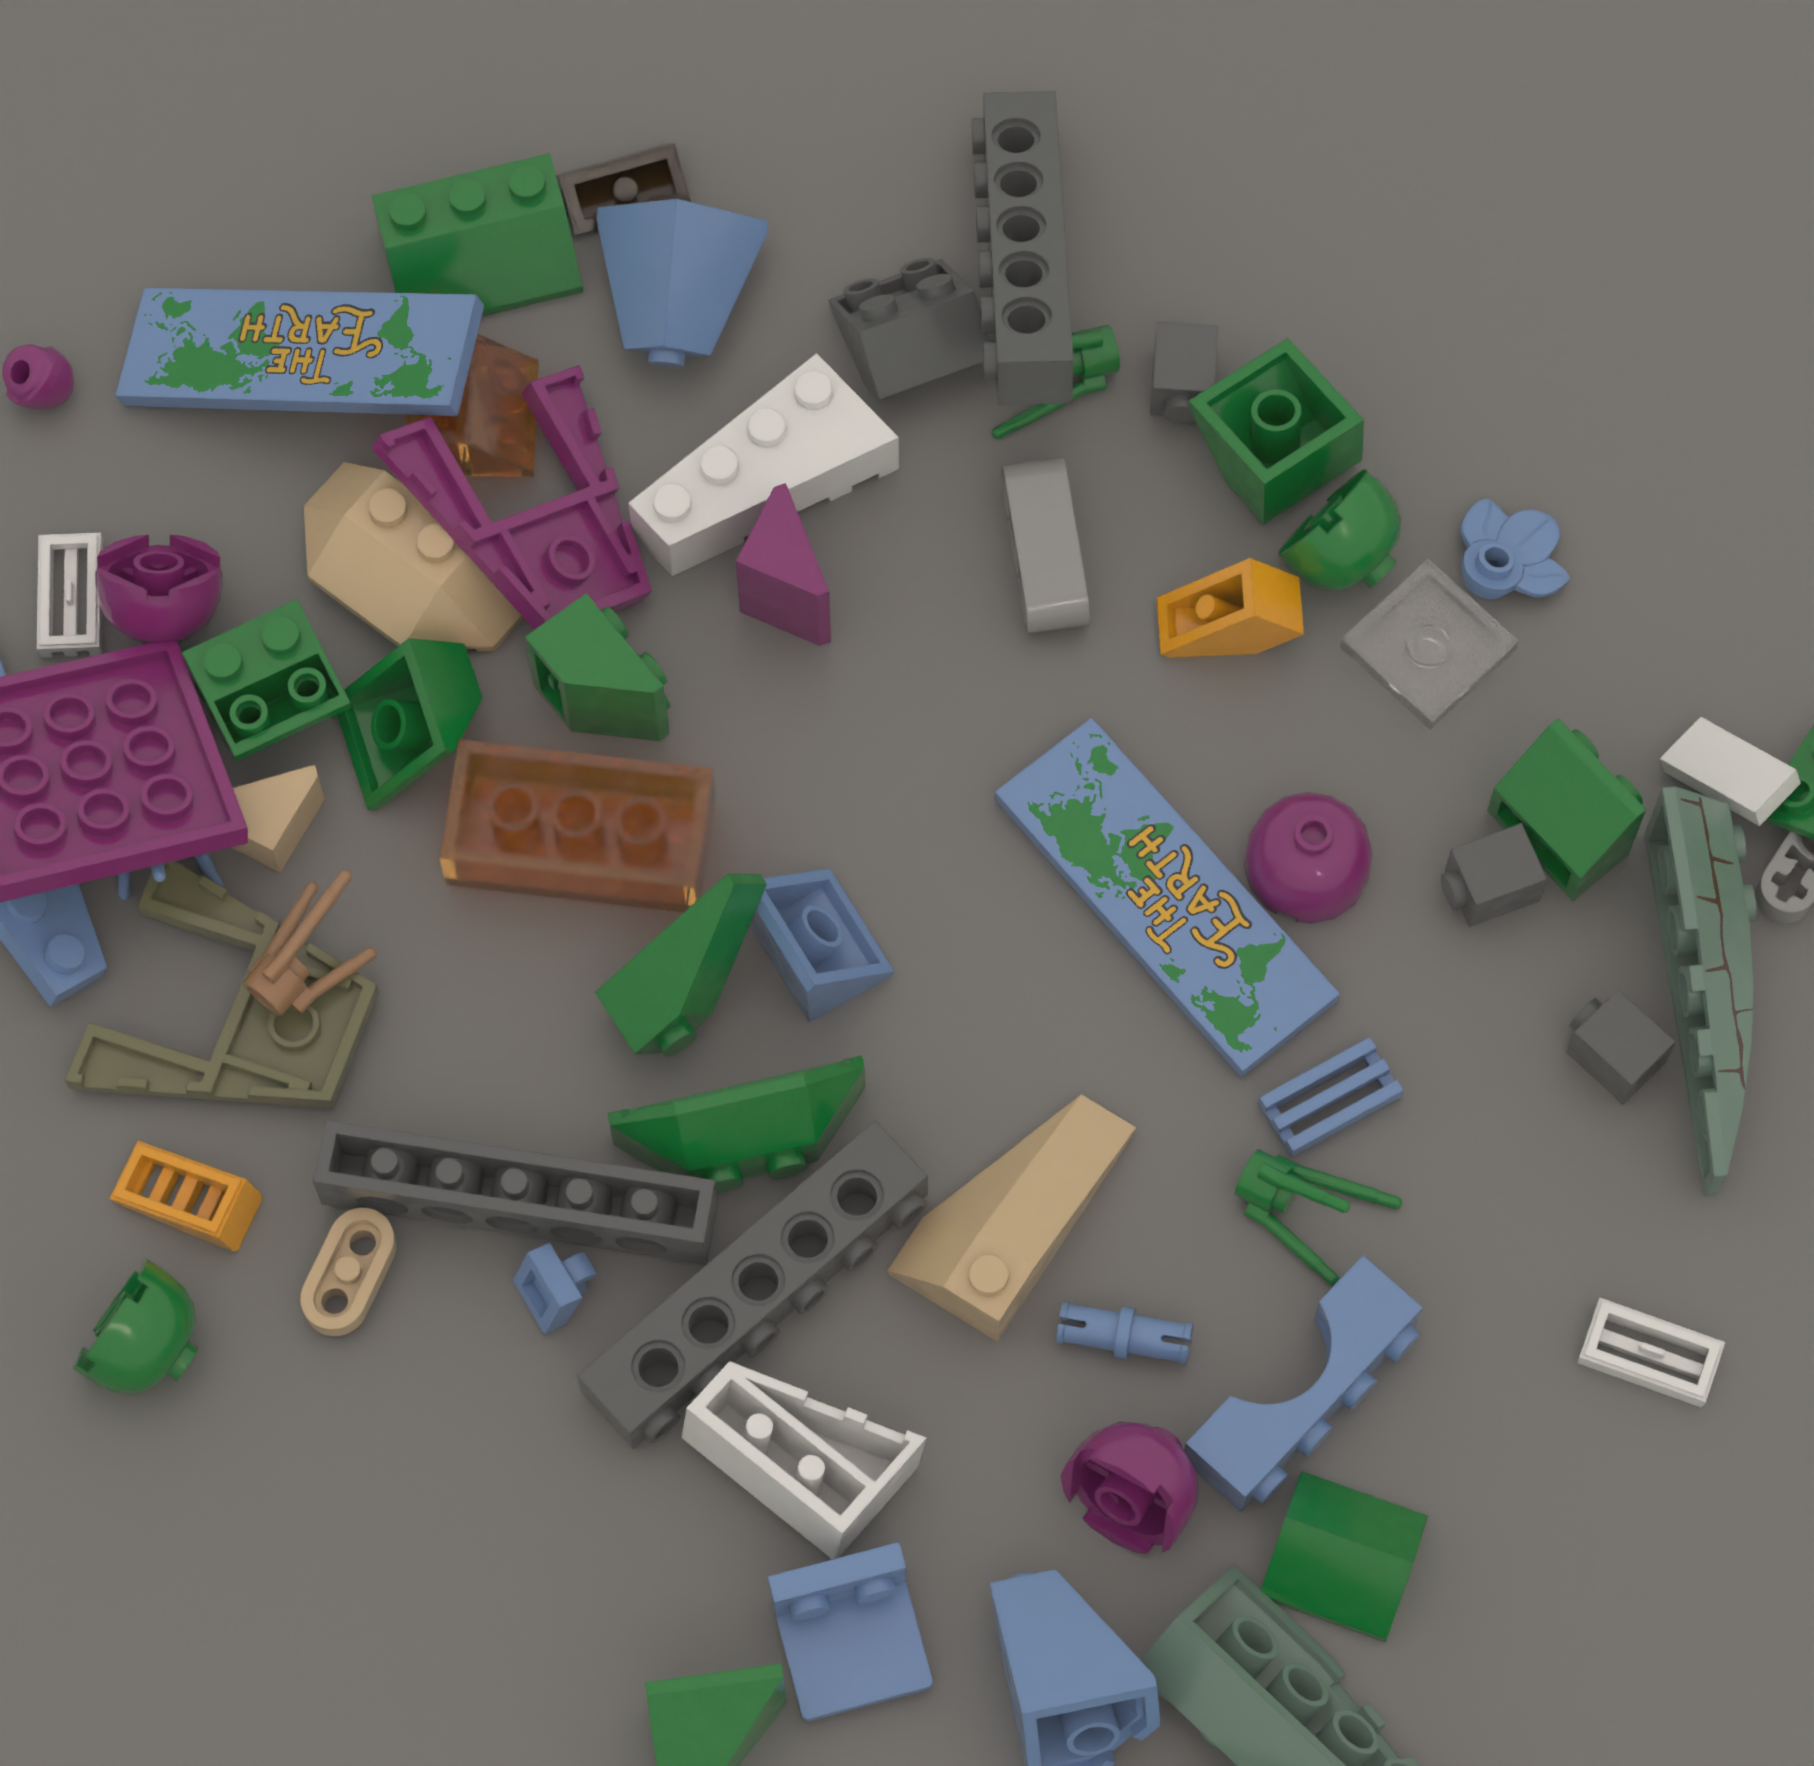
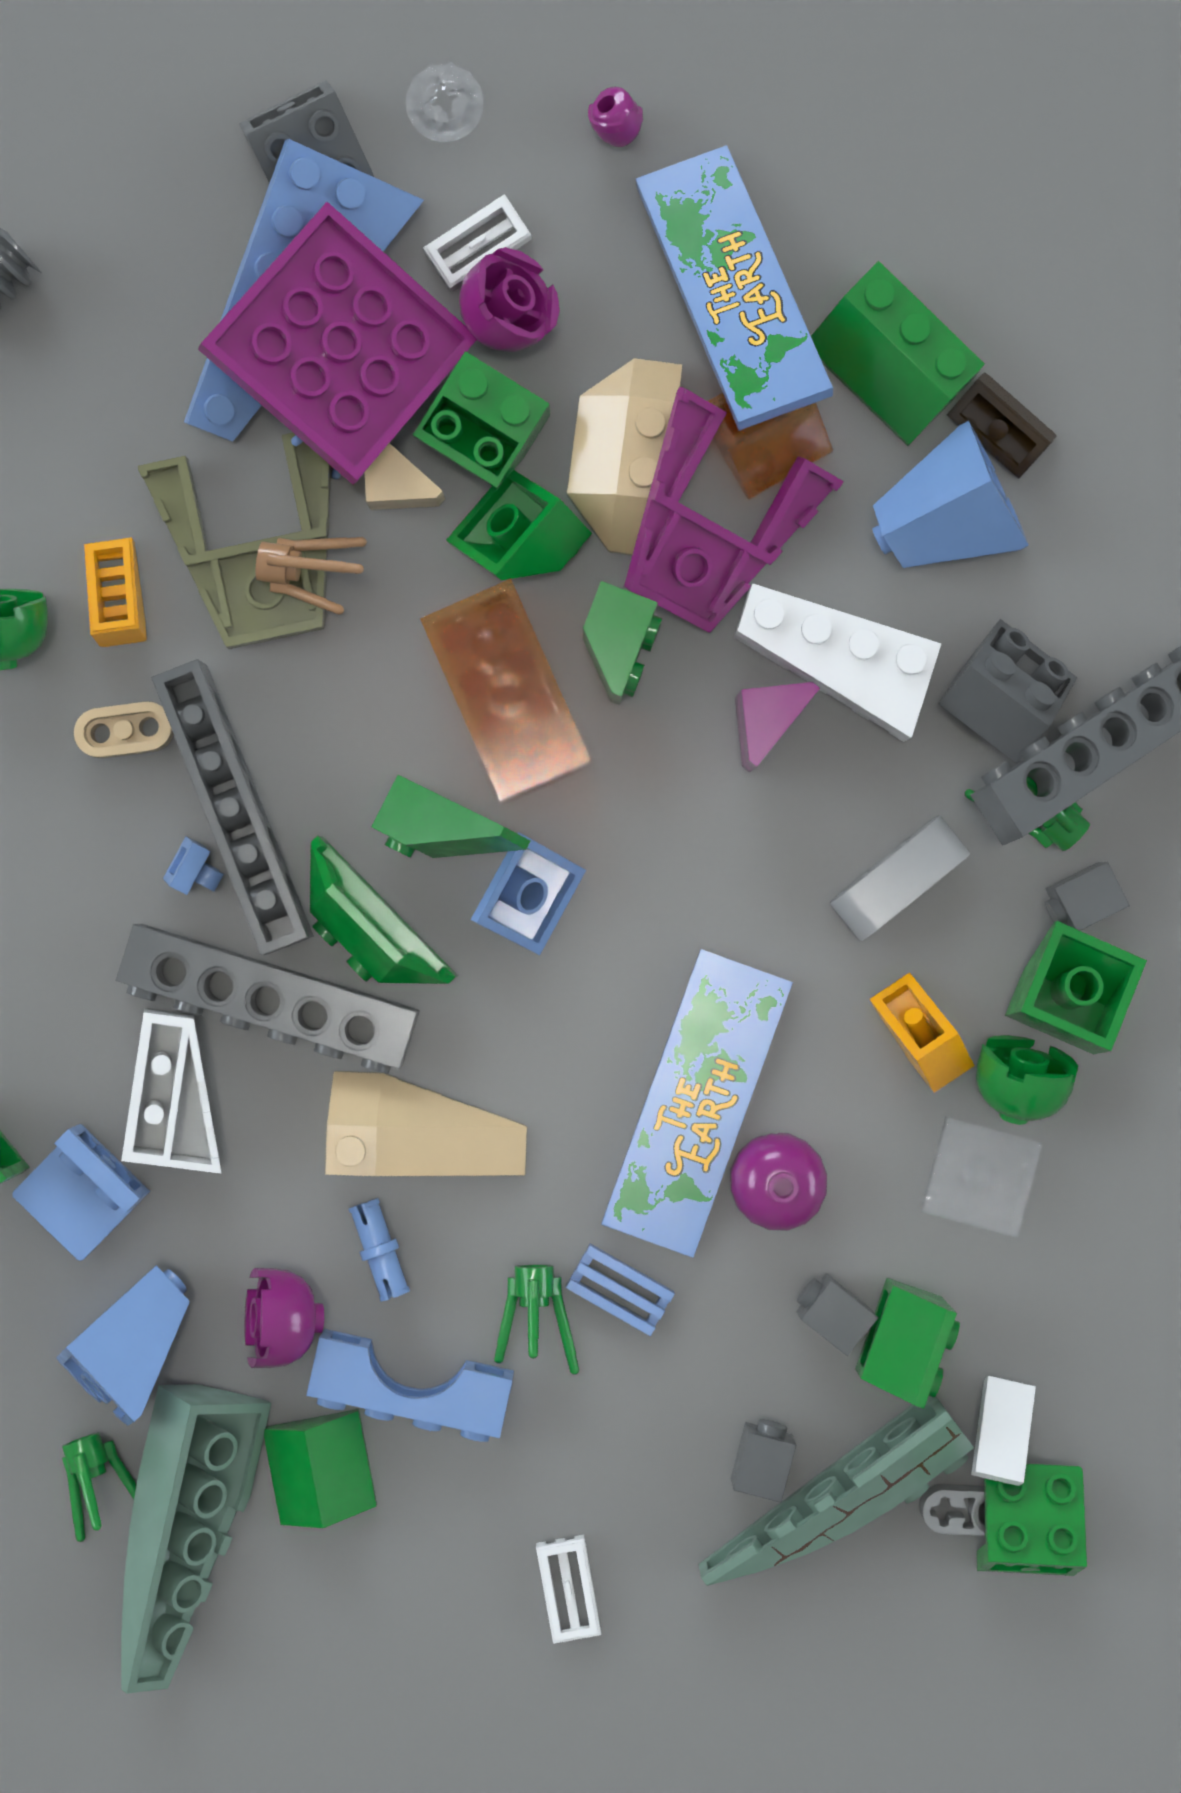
camera: 60 degrees right, 20 degrees up
(1510, 552) = (1089, 1194): medium blue plate -> none

